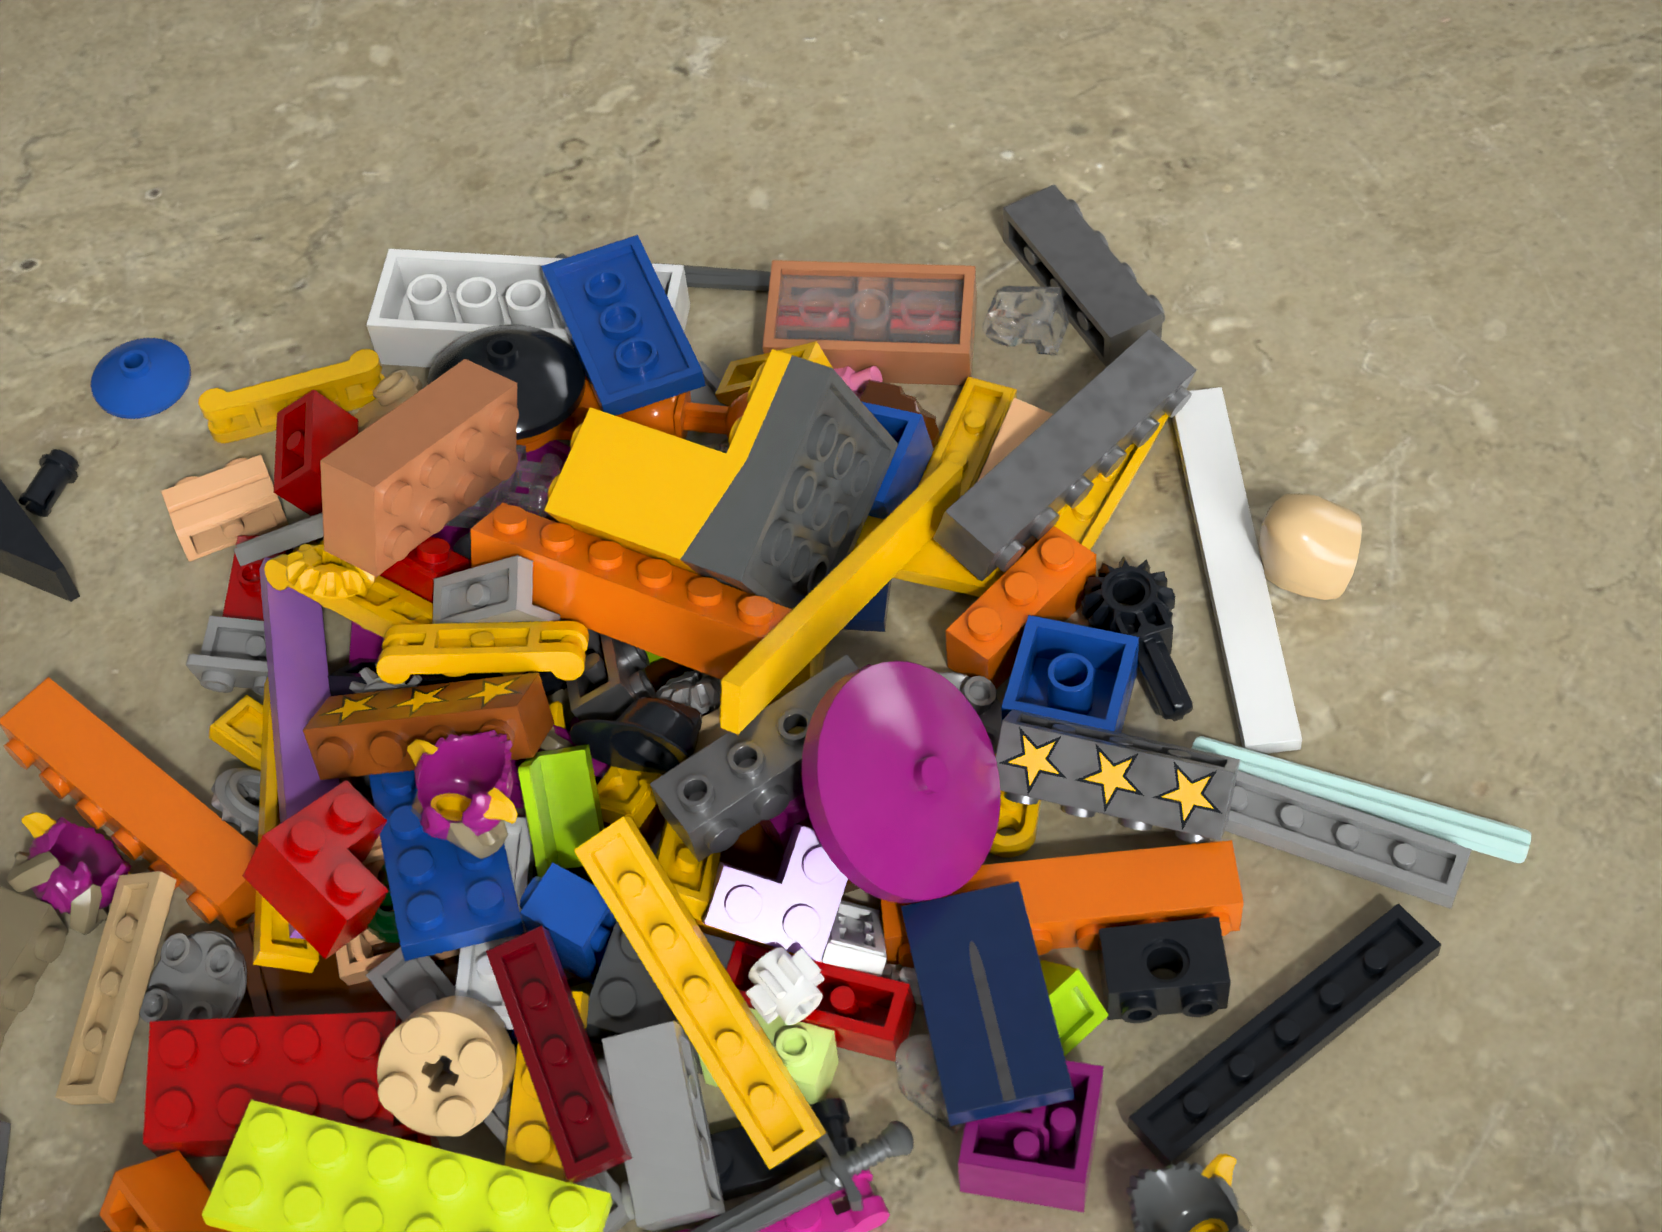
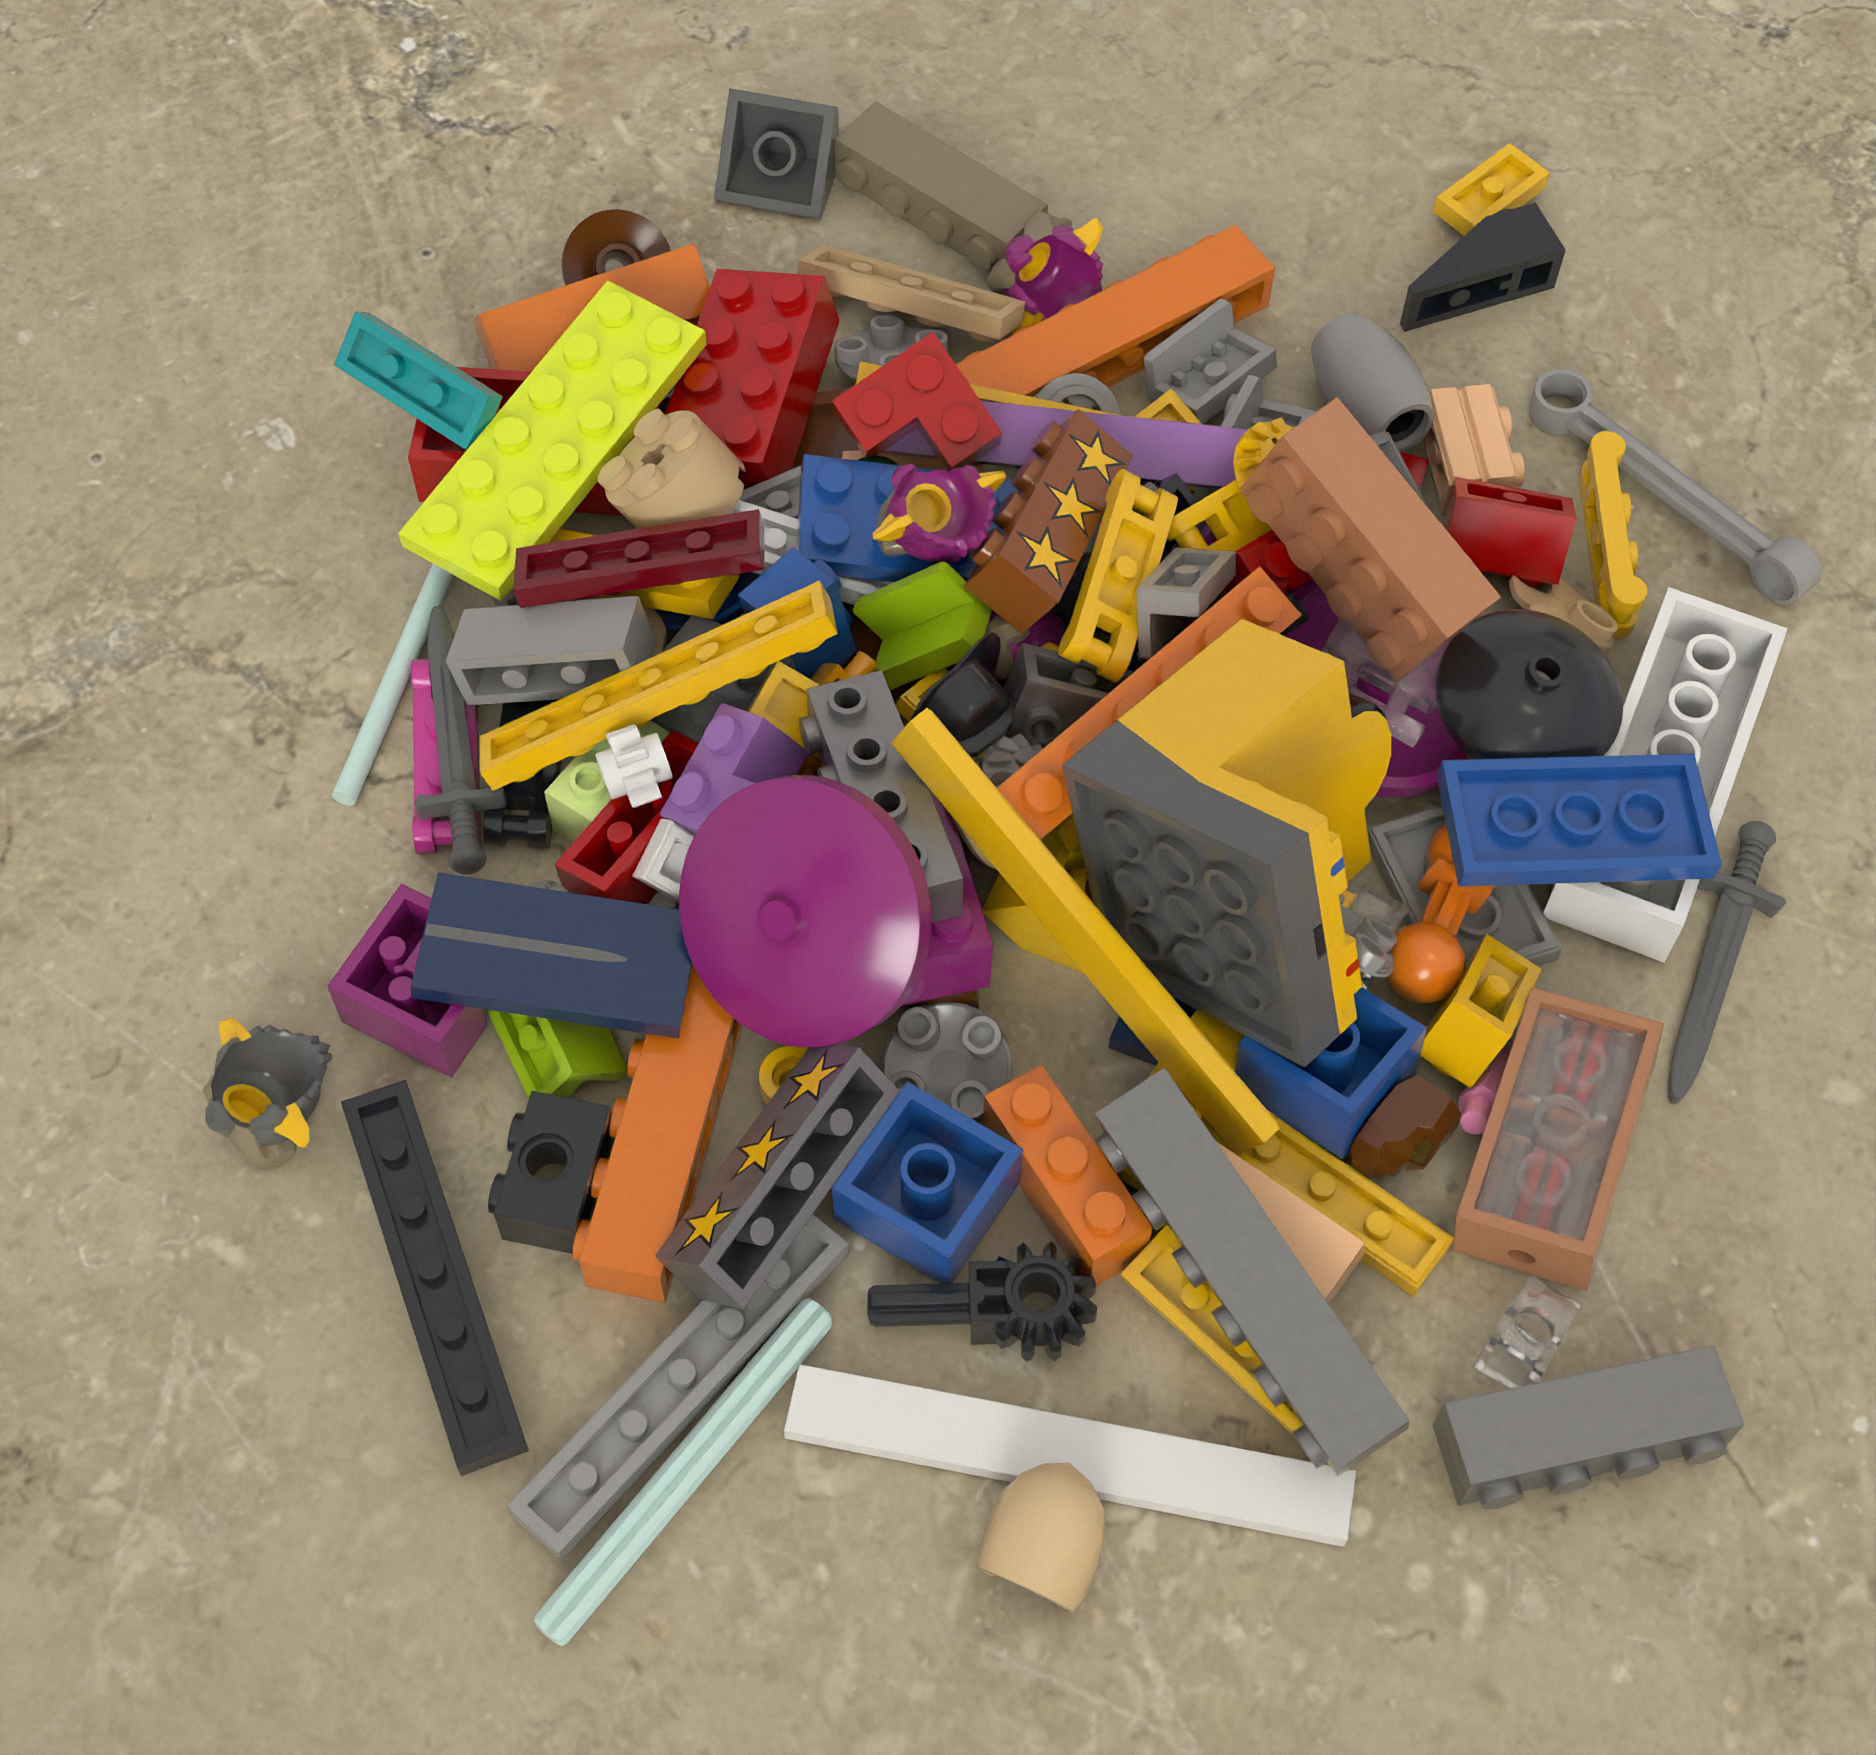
camera: 100 degrees right, 5 degrees up
(49, 482) = (1554, 312): black pin -> none
(141, 378) = (1694, 415): blue dish -> none
(167, 715) = (1207, 361): none -> light grey bracket
(170, 580) = (1373, 379): none -> light grey piece
(302, 287) = (1778, 568): none -> light grey piece

